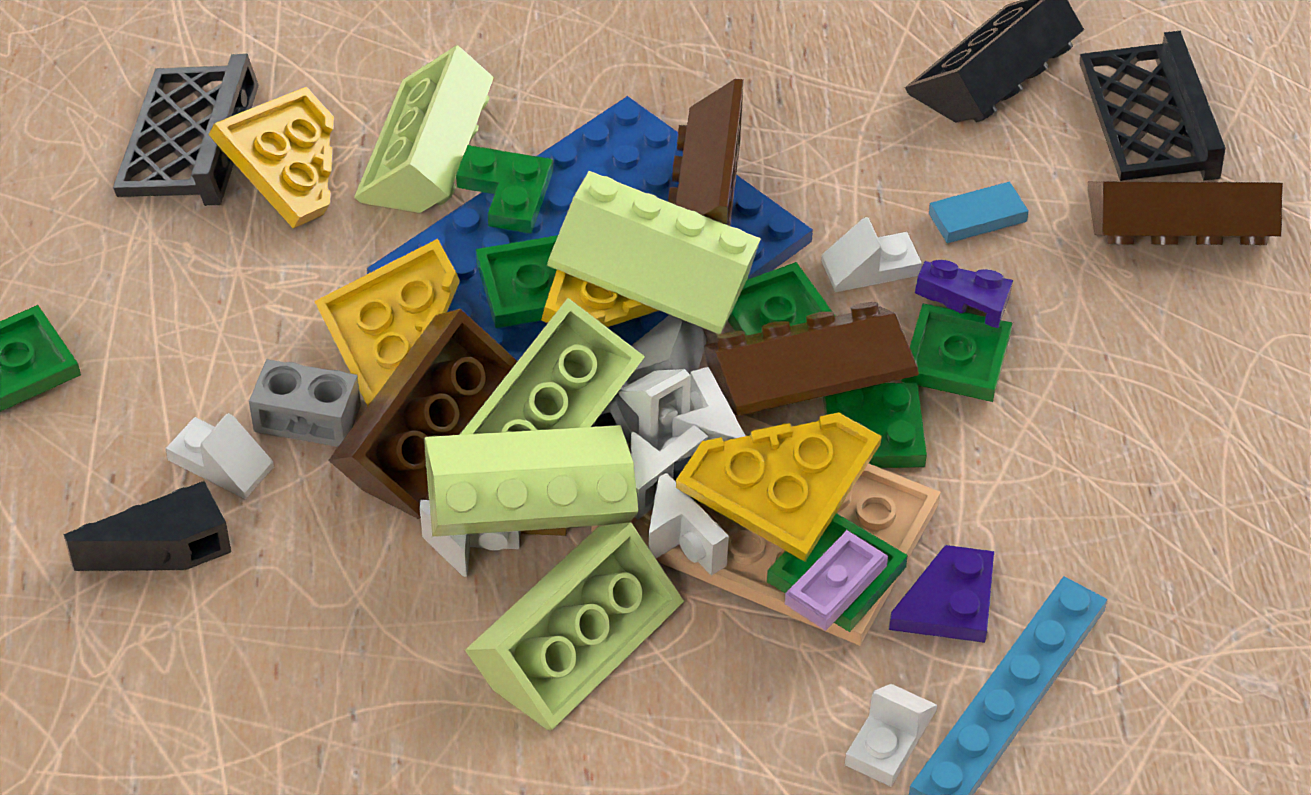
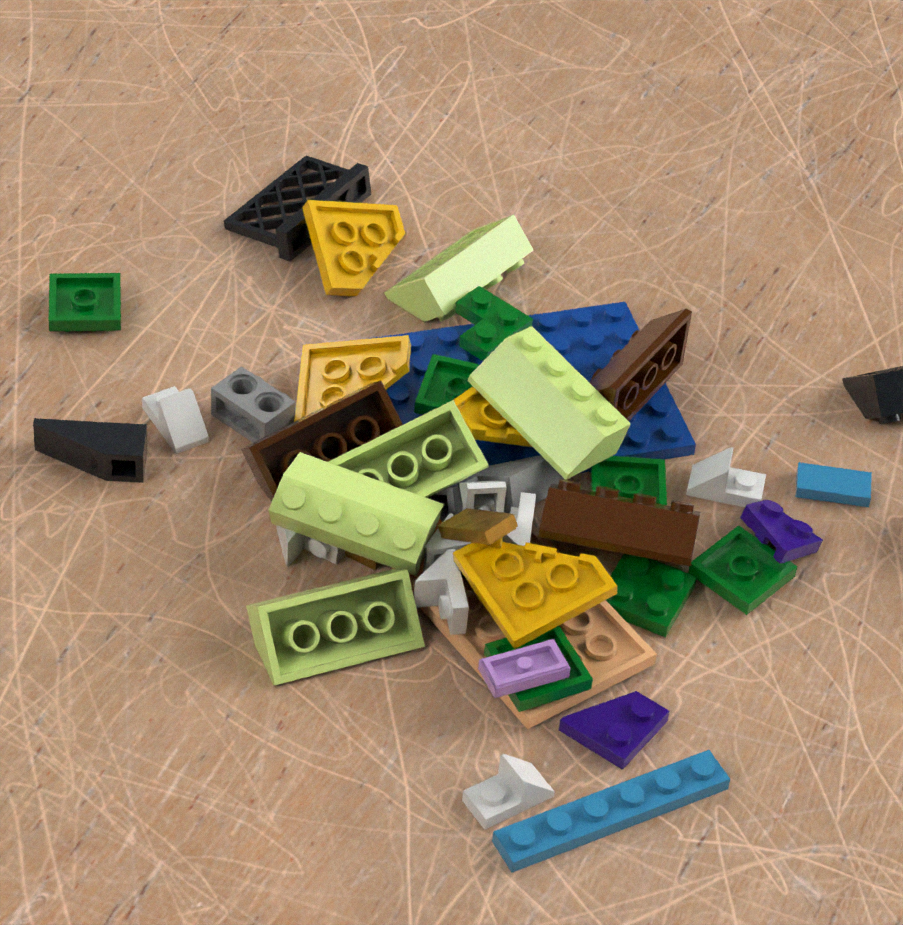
camera: 25 degrees right, 5 degrees down
(686, 436) = (478, 526): none -> pearl gold tile

